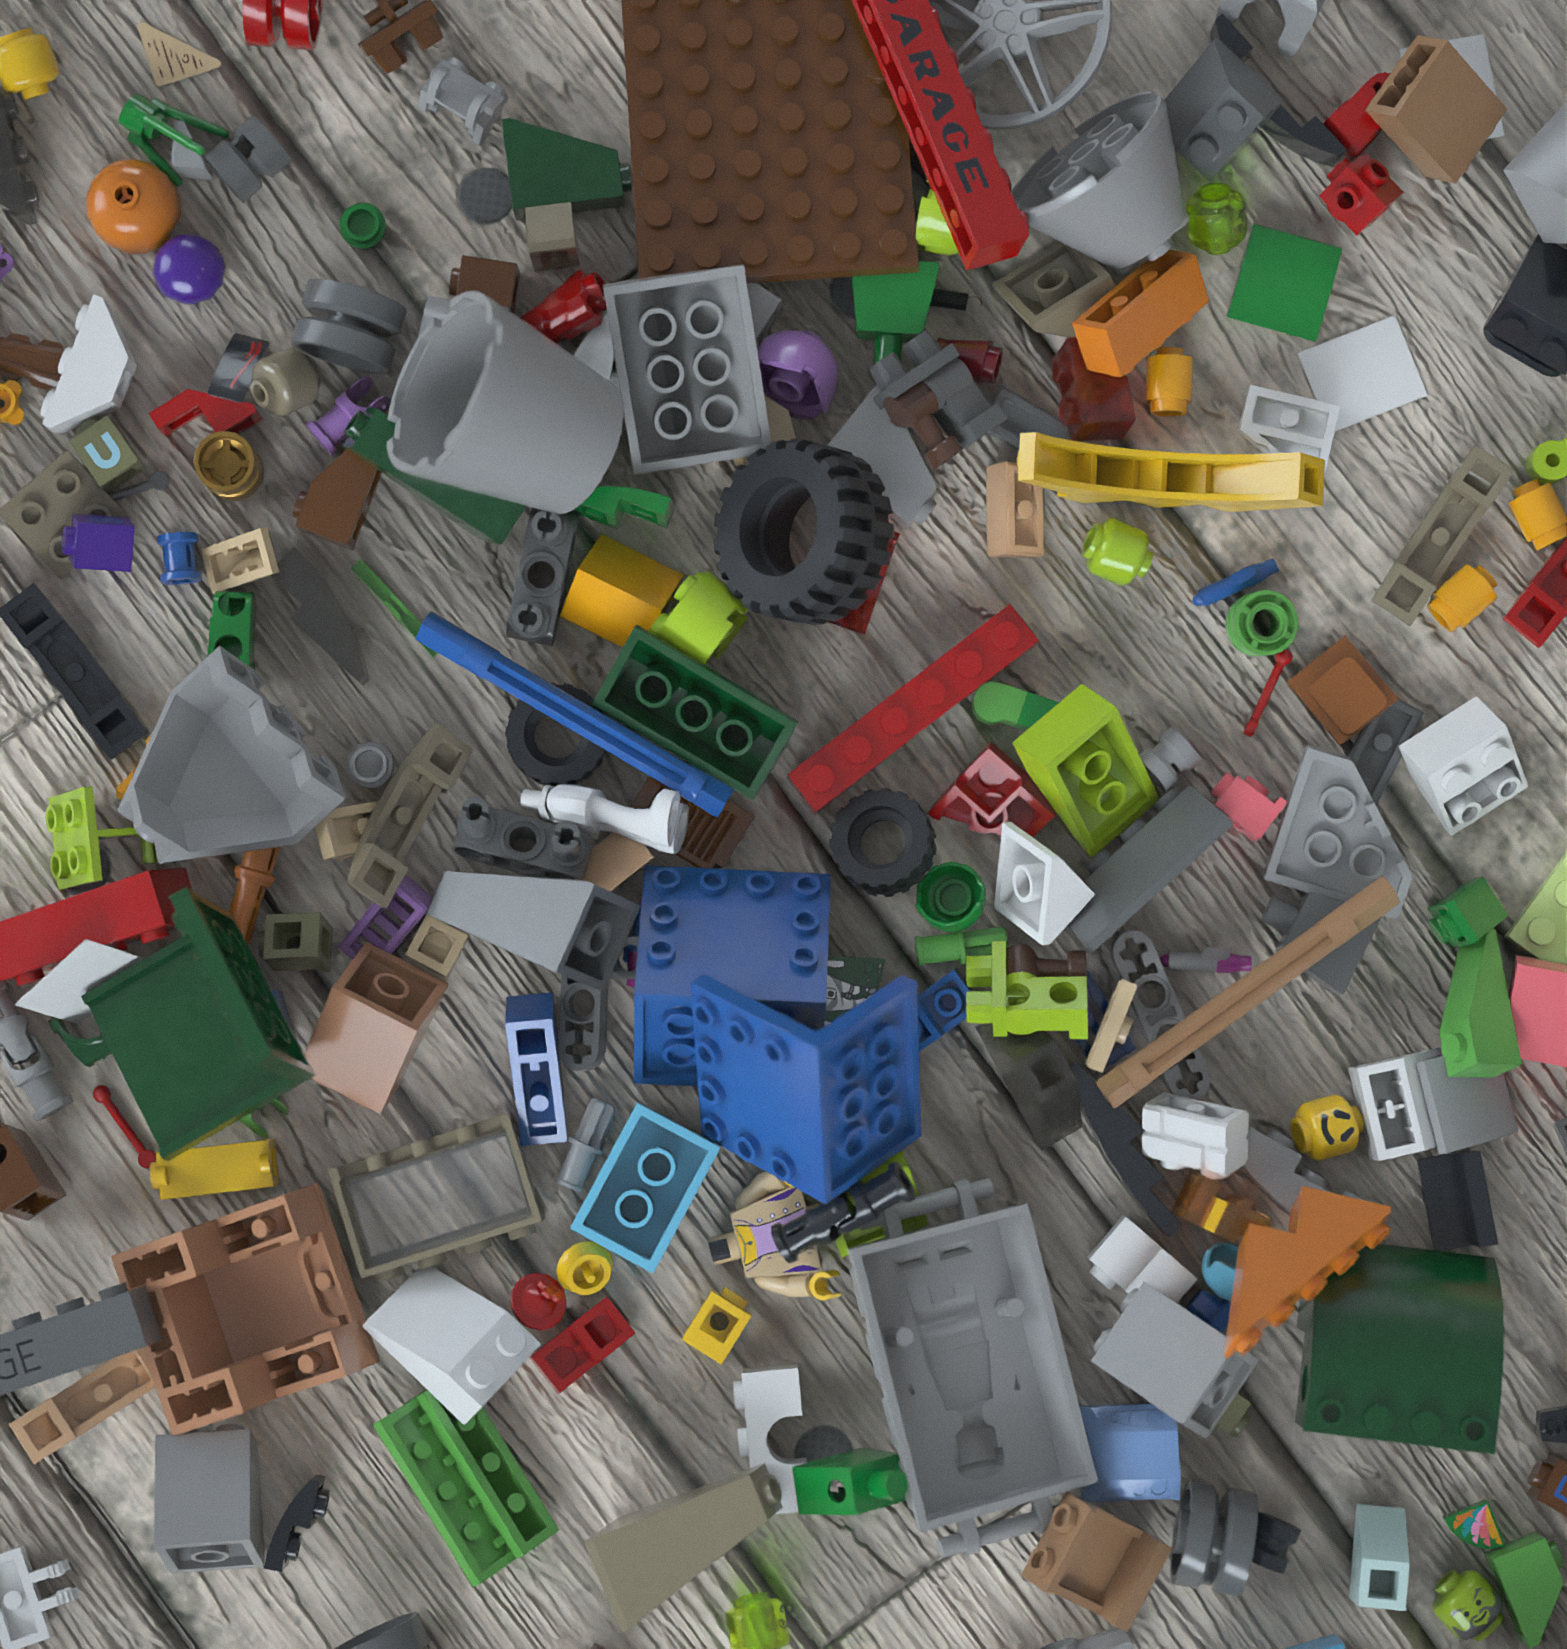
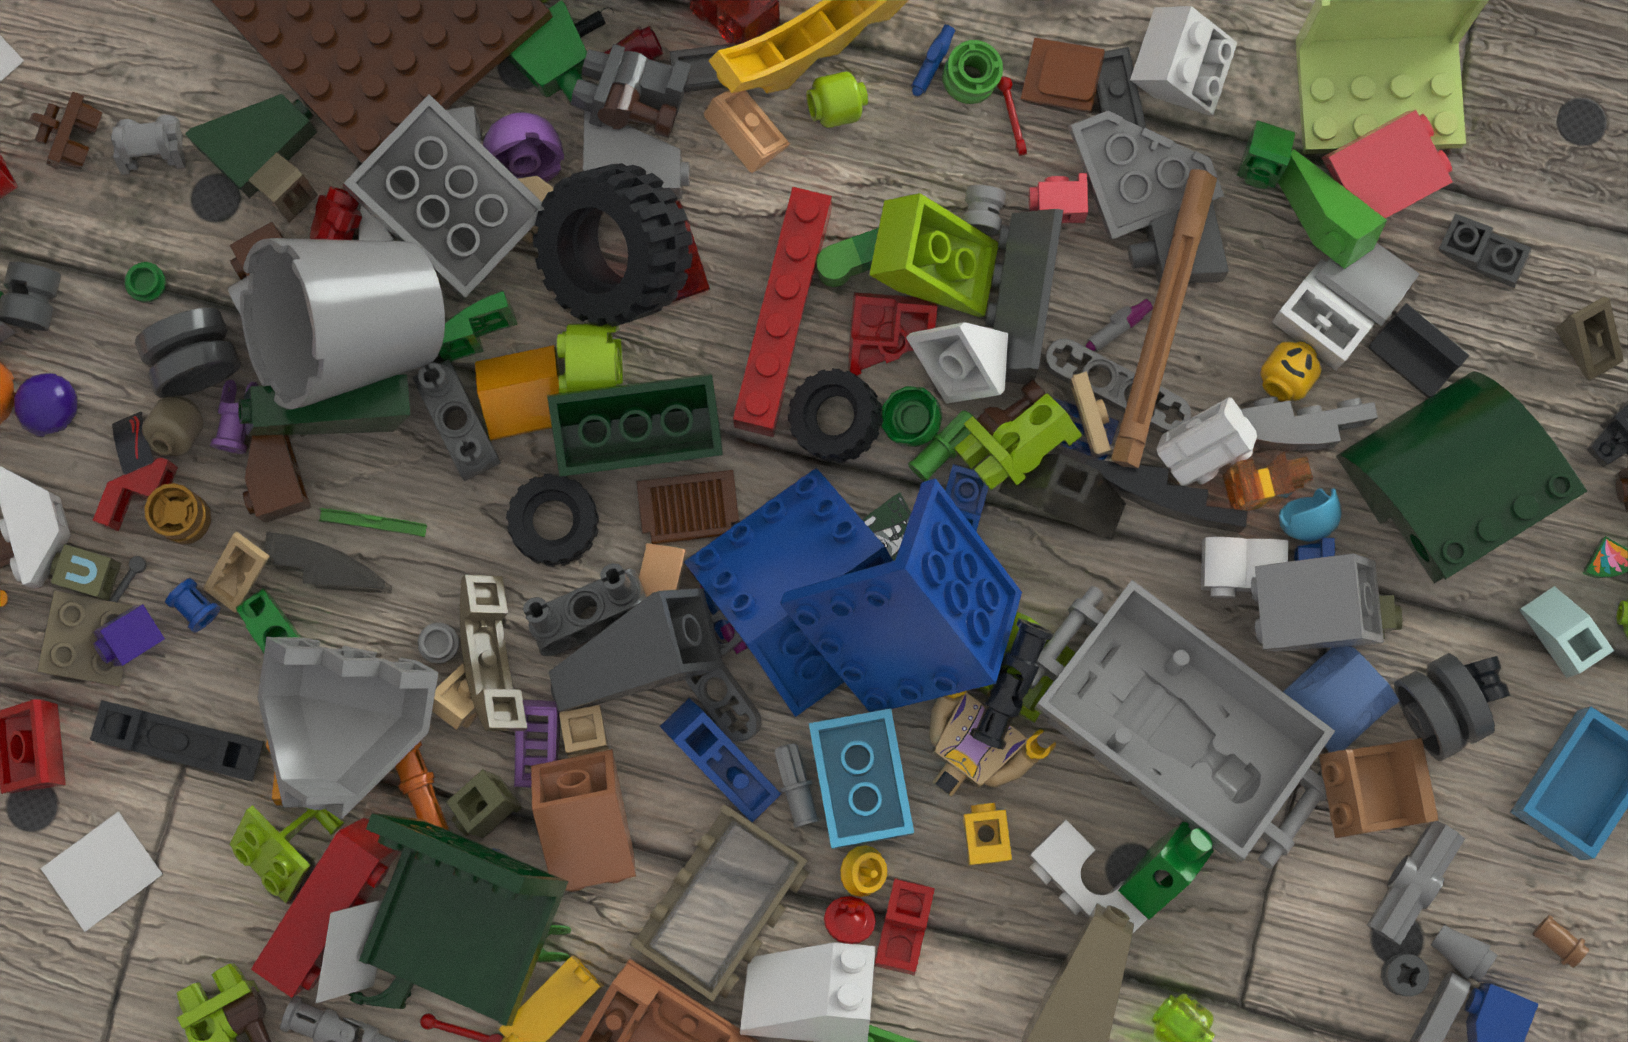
camera: 30 degrees left, 5 degrees down
(569, 711) = (551, 493): blue piece -> none
(659, 827) = (670, 526): white piece -> none
(1283, 1266) = (1342, 476): orange slope -> none

